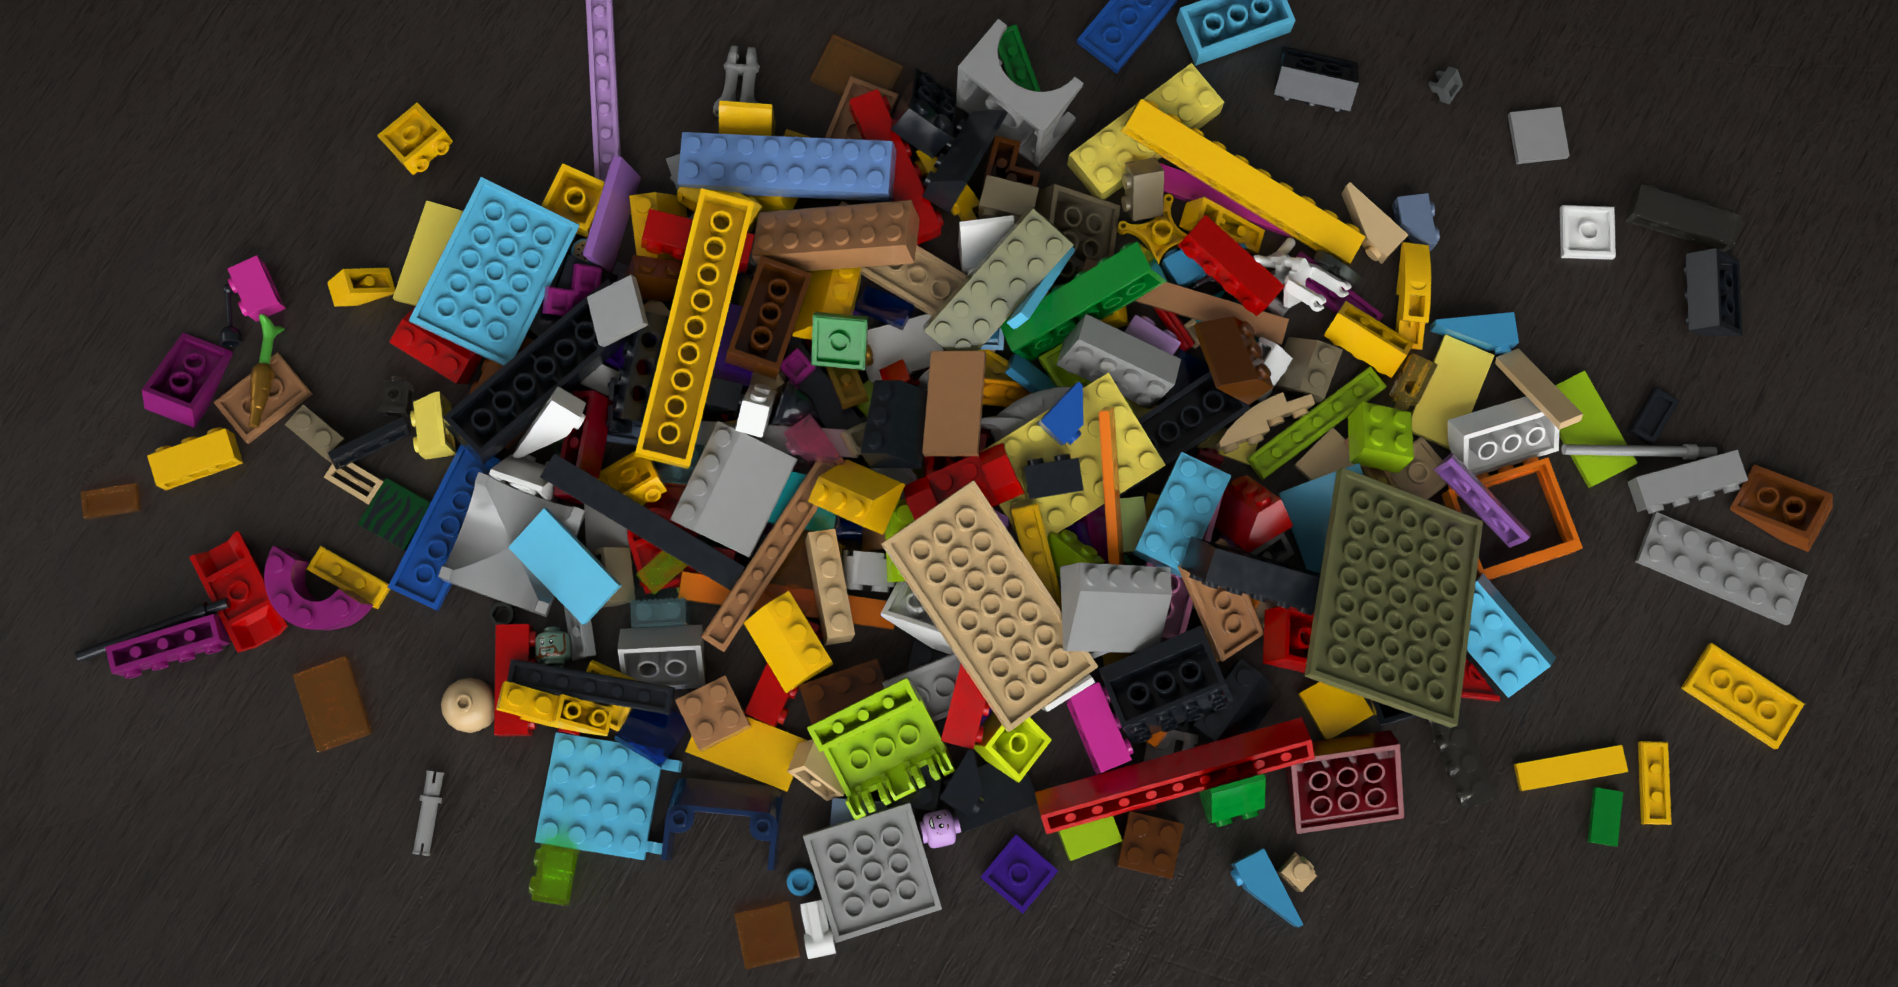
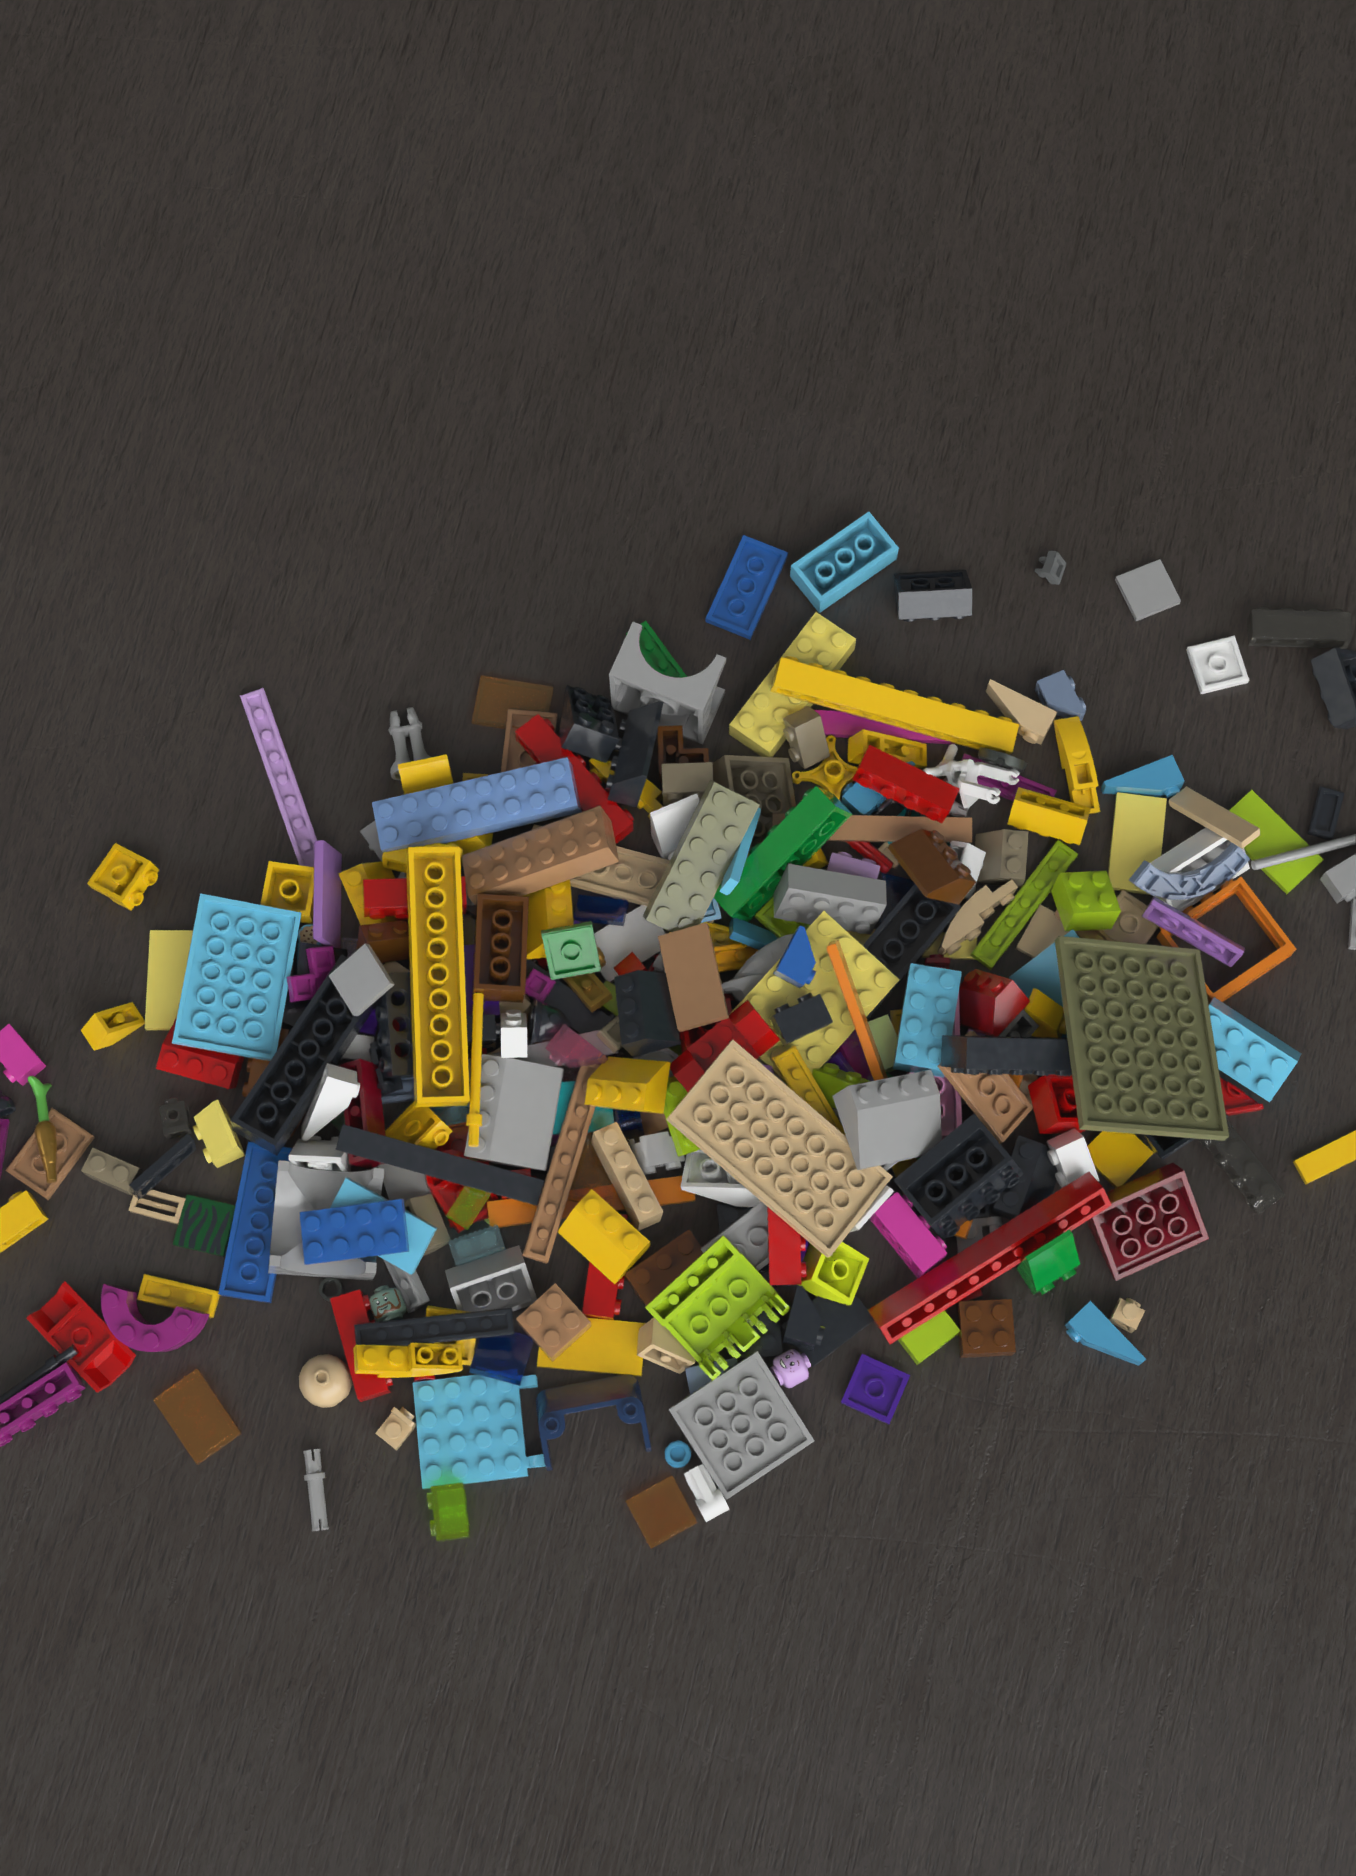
camera: 10 degrees left, 5 degrees down
(527, 773) = (397, 1427): none -> tan bracket
(537, 565) = (354, 1232): none -> blue plate
(690, 486) = (474, 1118): none -> yellow bar
(1287, 696) = (1071, 1157): none -> white brick
(1306, 544) = (1046, 1014): none -> yellow slope
(1417, 374) = (1099, 834): clear yellow torso -> none
(1495, 450) = (1192, 883): none -> sand blue tile

